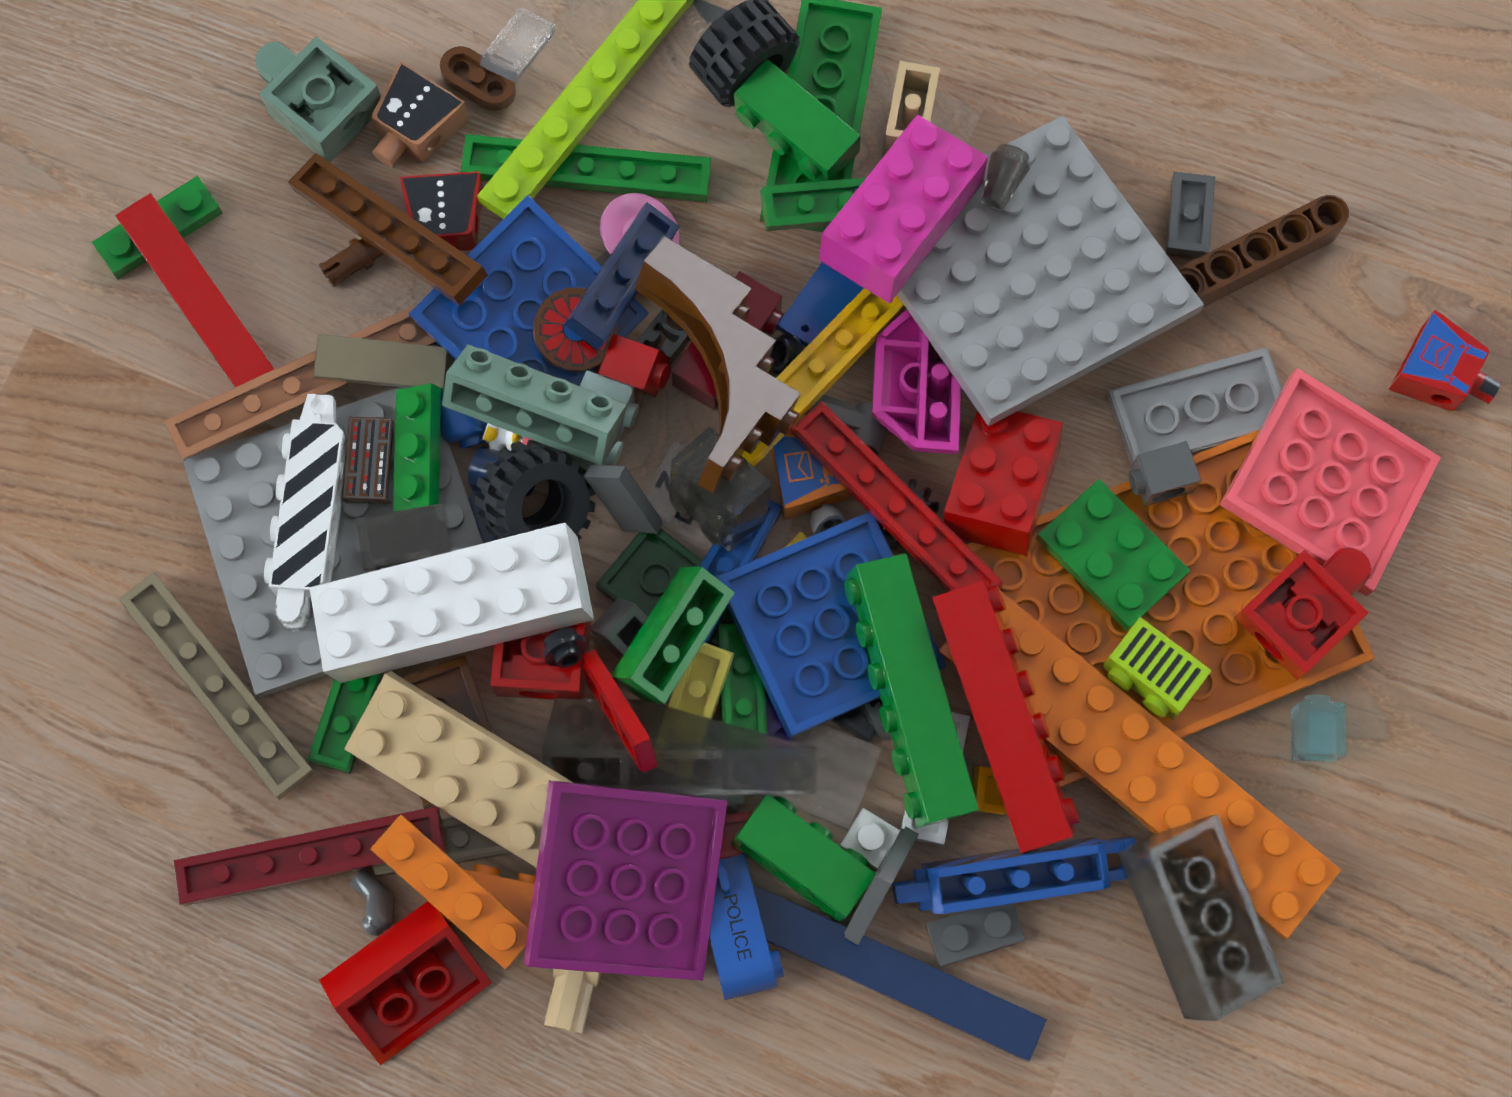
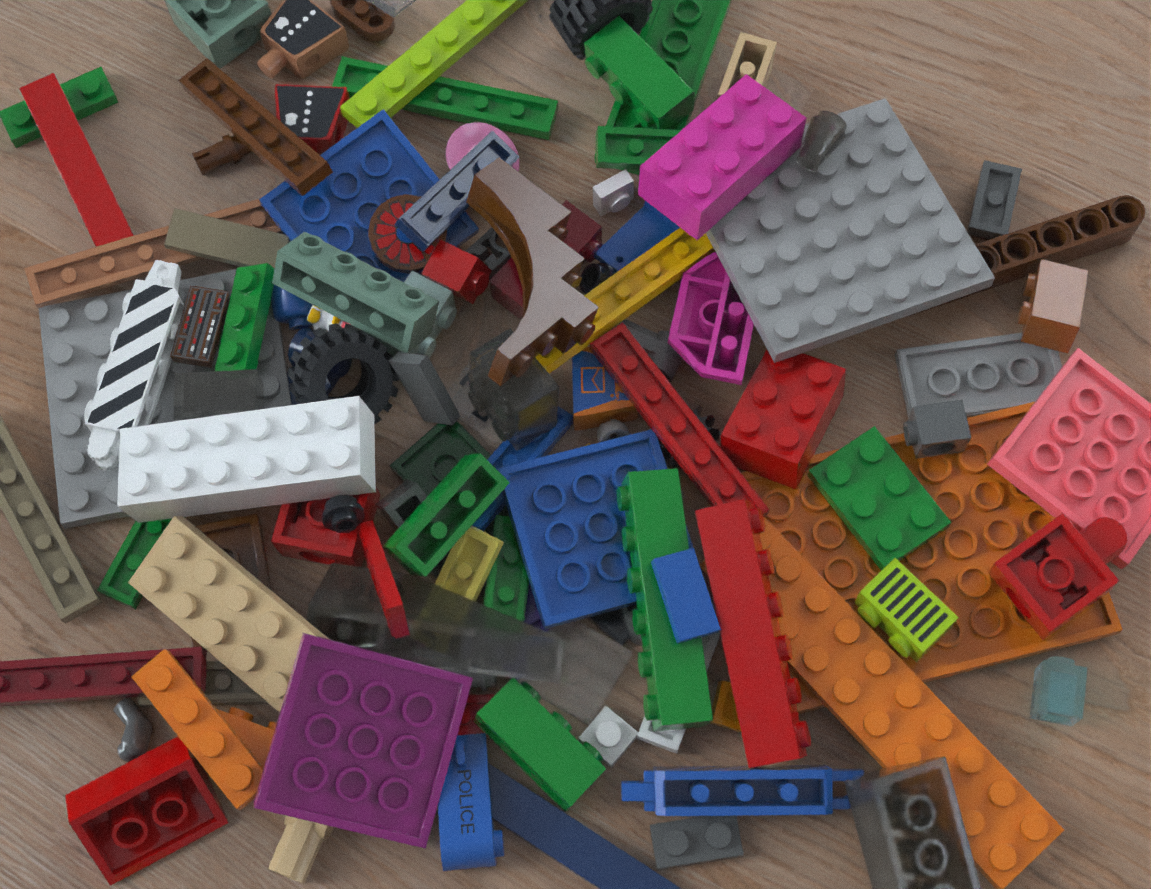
camera: 15 degrees right, 5 degrees down
(787, 255) = (613, 193): none -> white plate
(880, 885) = (608, 780): dark grey tile -> none
(934, 686) = (685, 595): none -> blue tile
(1265, 324) = (1053, 305): none -> brick

